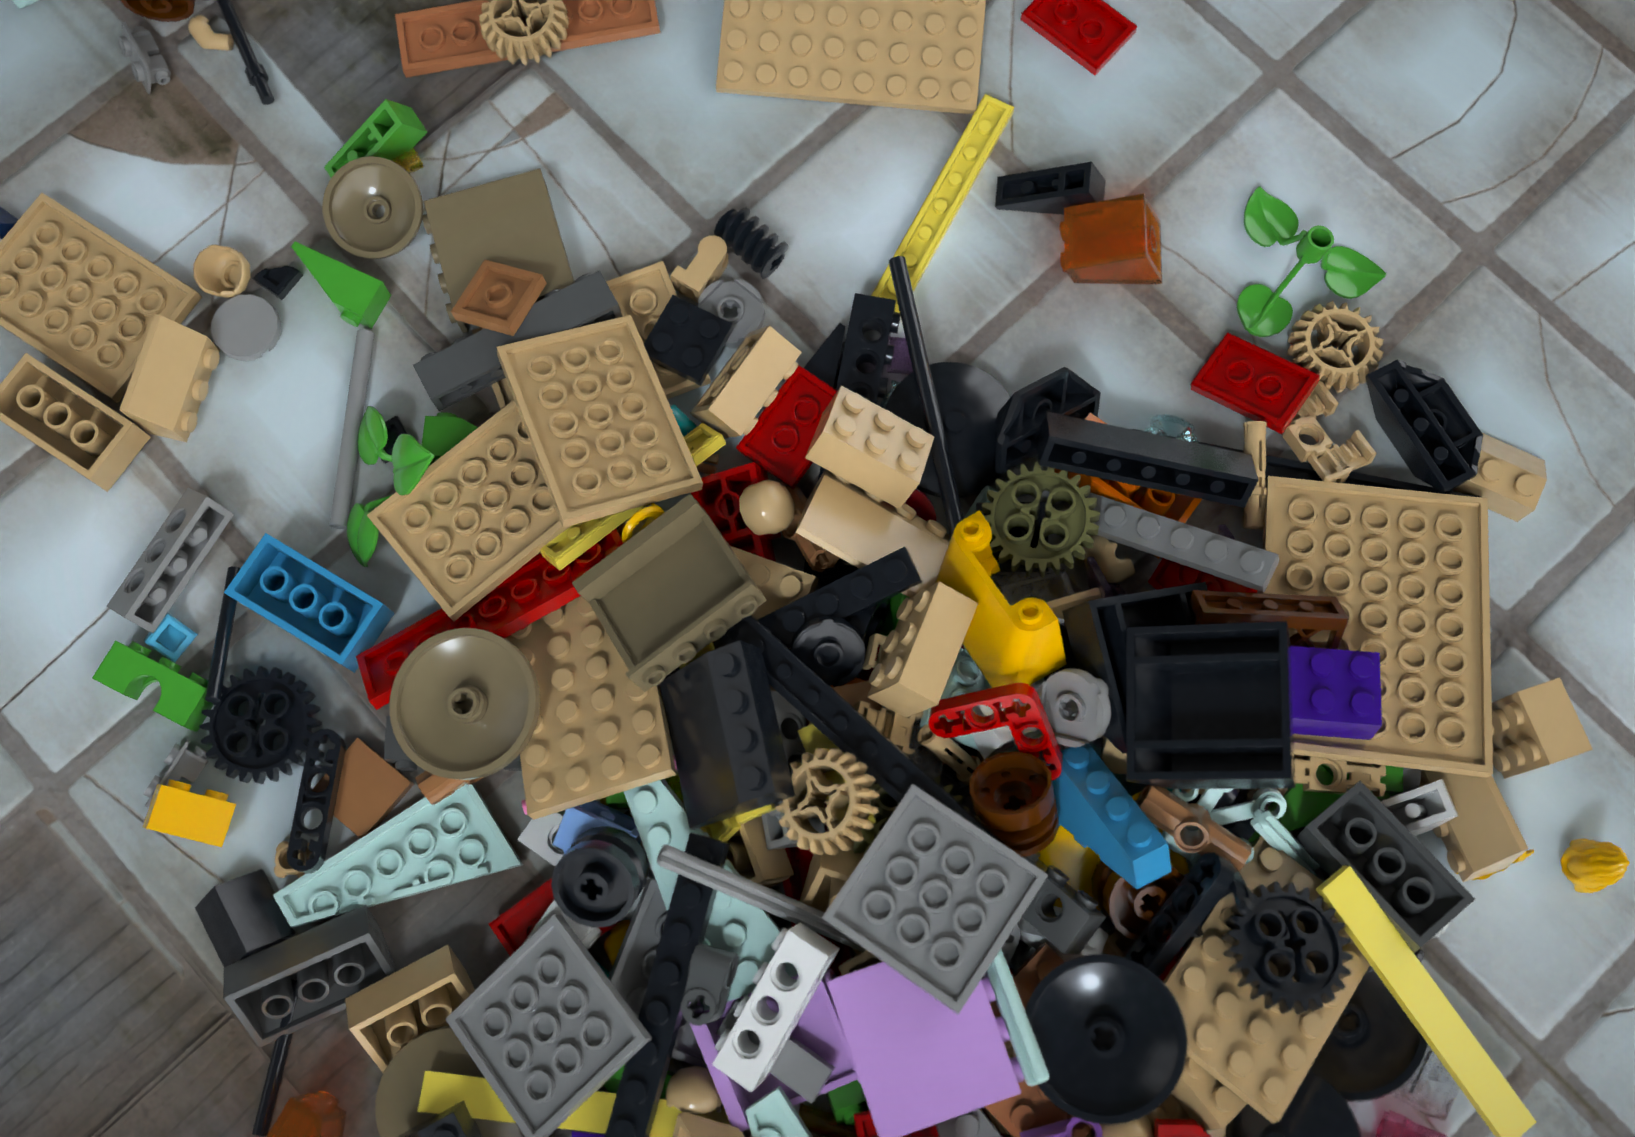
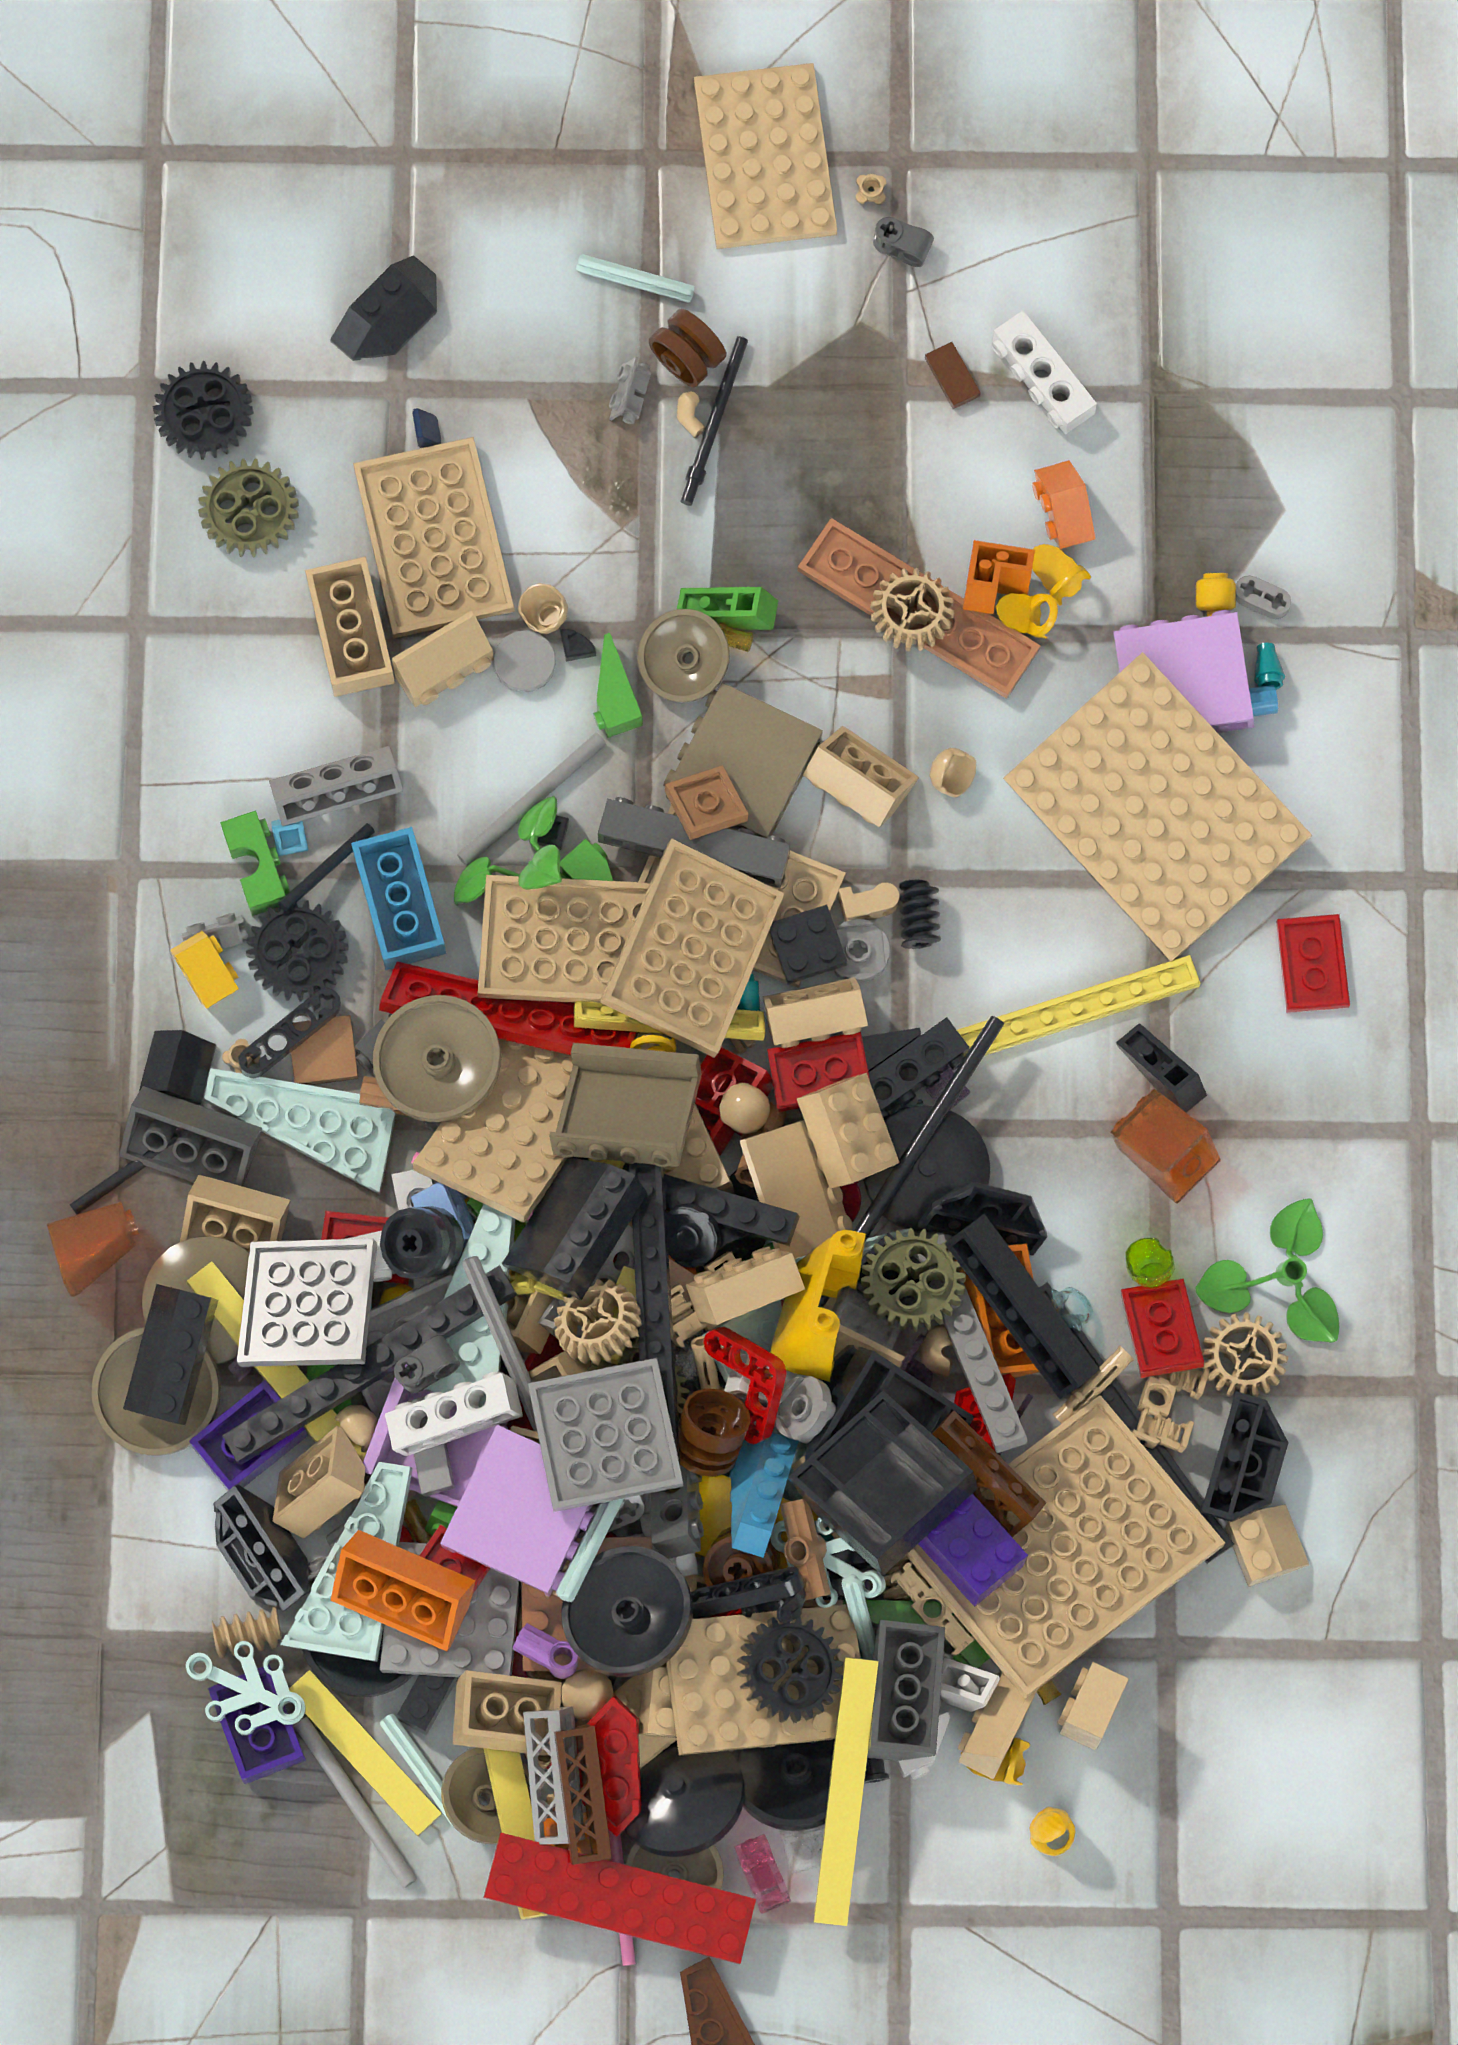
camera: 40 degrees right, 0 degrees up
(602, 182) = (860, 776): none -> tan slope
(672, 115) = (952, 771): none -> tan hair
(1194, 342) = (1149, 1262): none -> clear neon green hair

